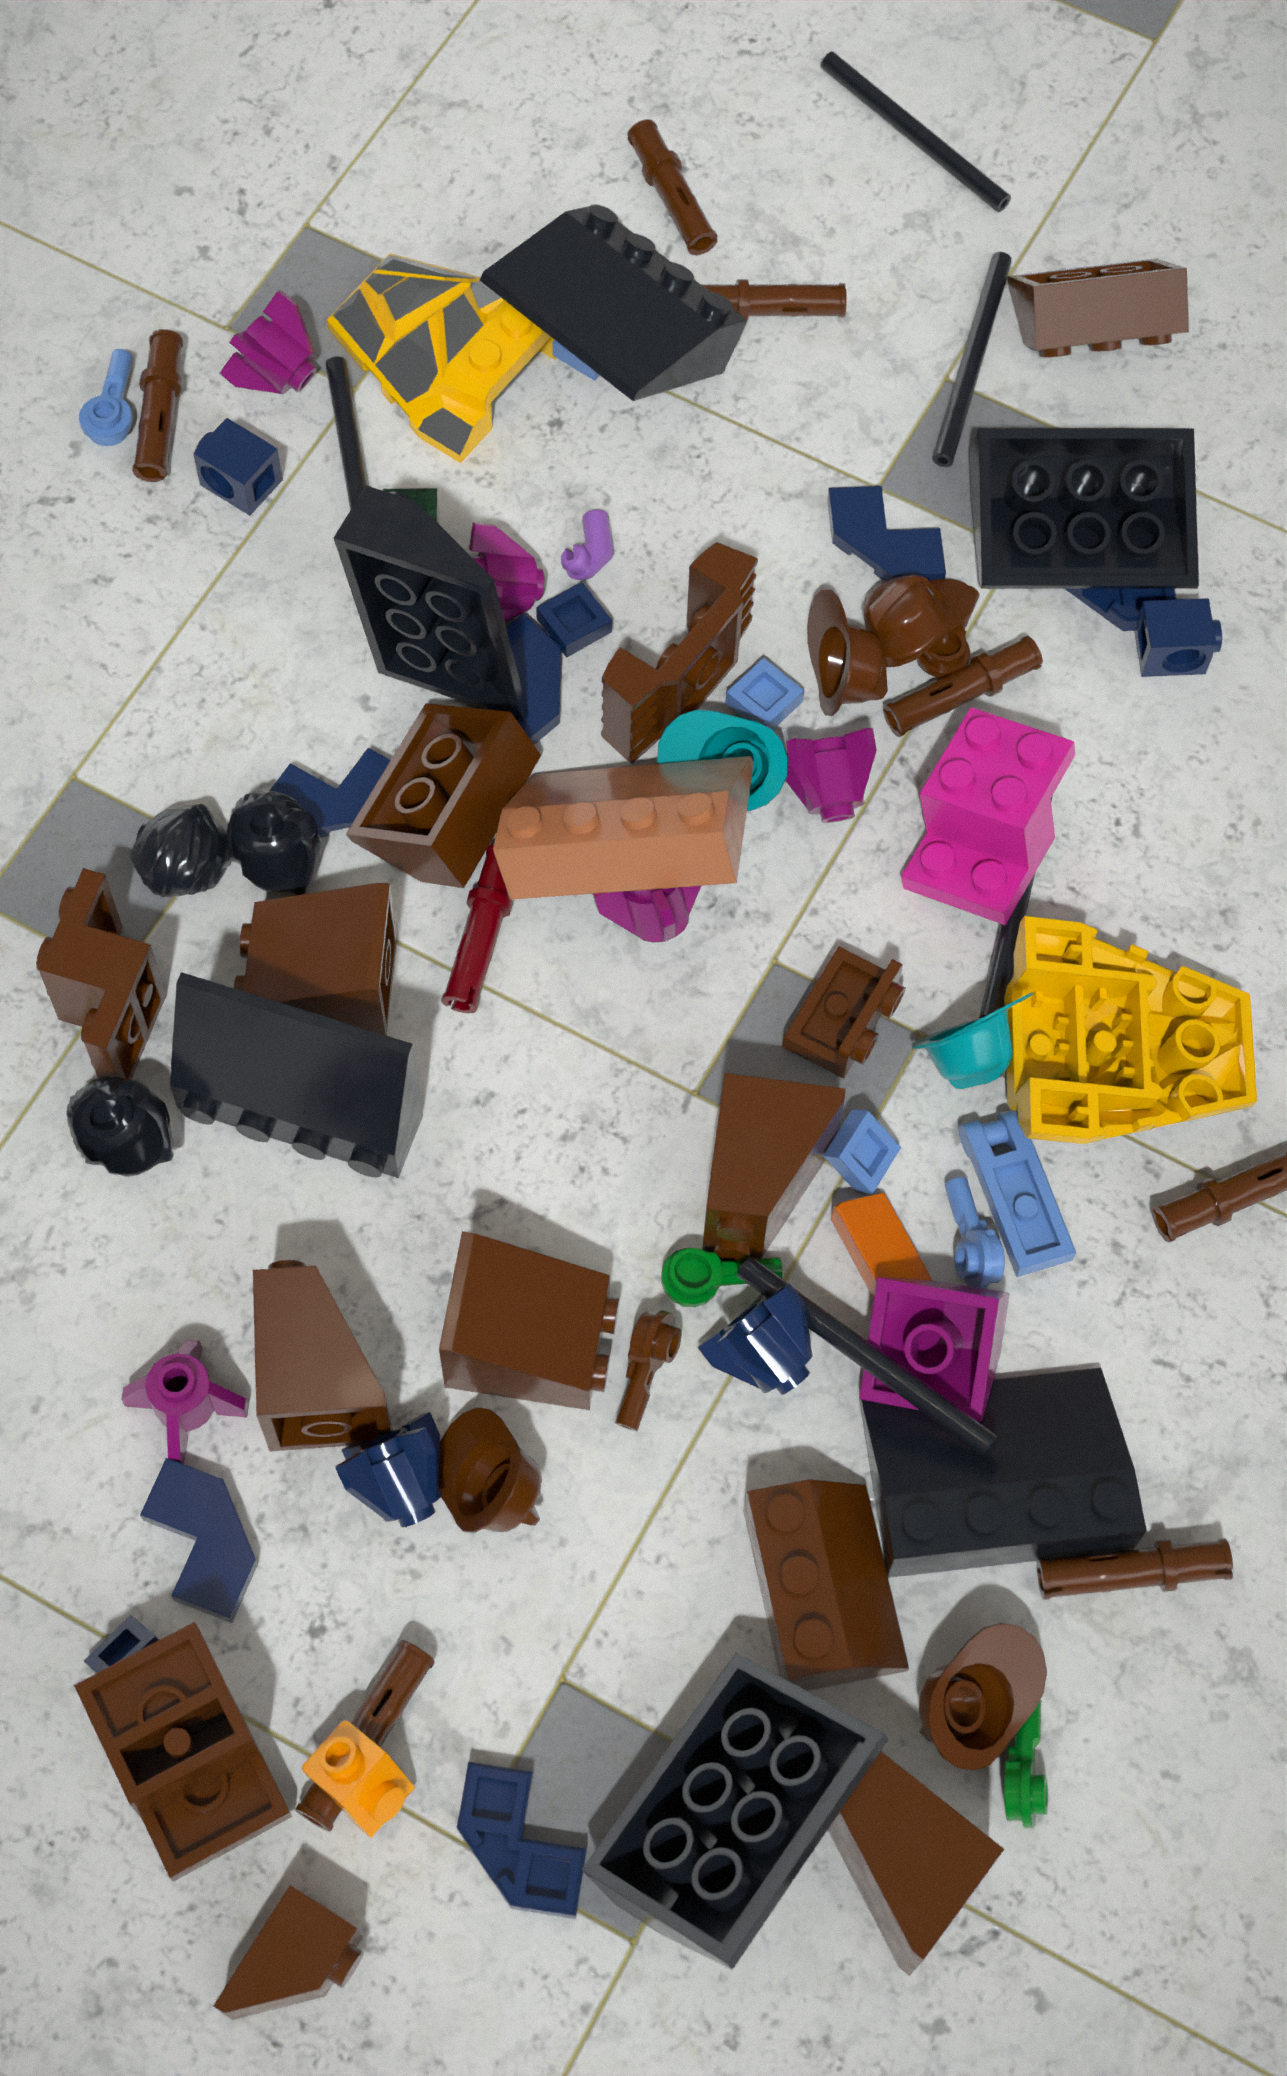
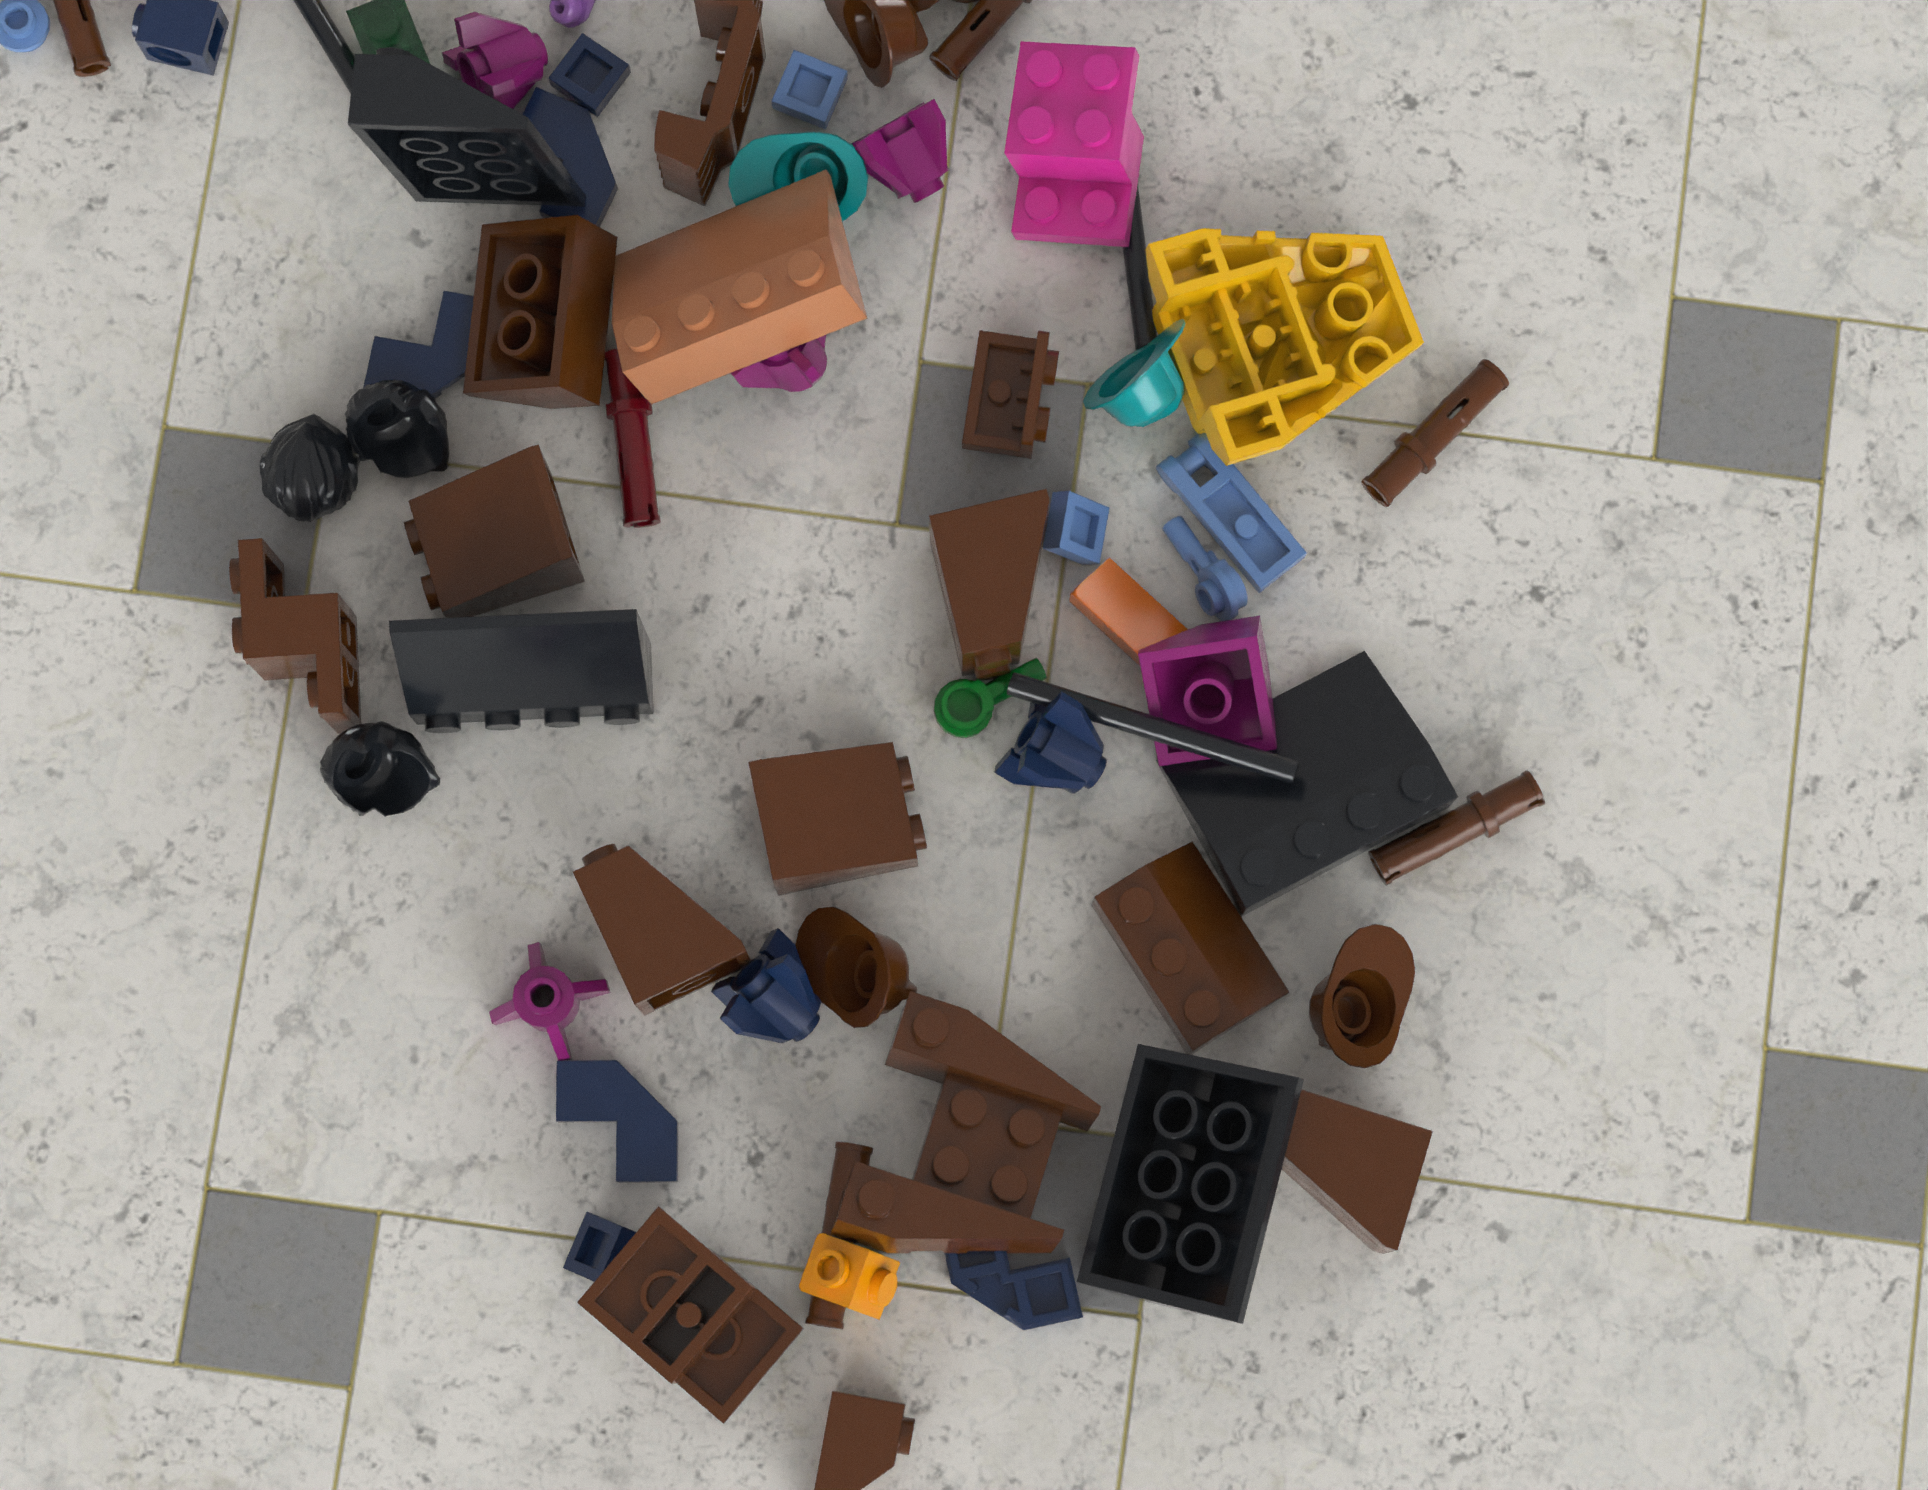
camera: 20 degrees left, 15 degrees up
(539, 1698) = (980, 1148): none -> reddish brown wedge
(652, 1344) = (953, 785): reddish brown plate -> none
(1023, 1789) = (1426, 1060): green plate -> none

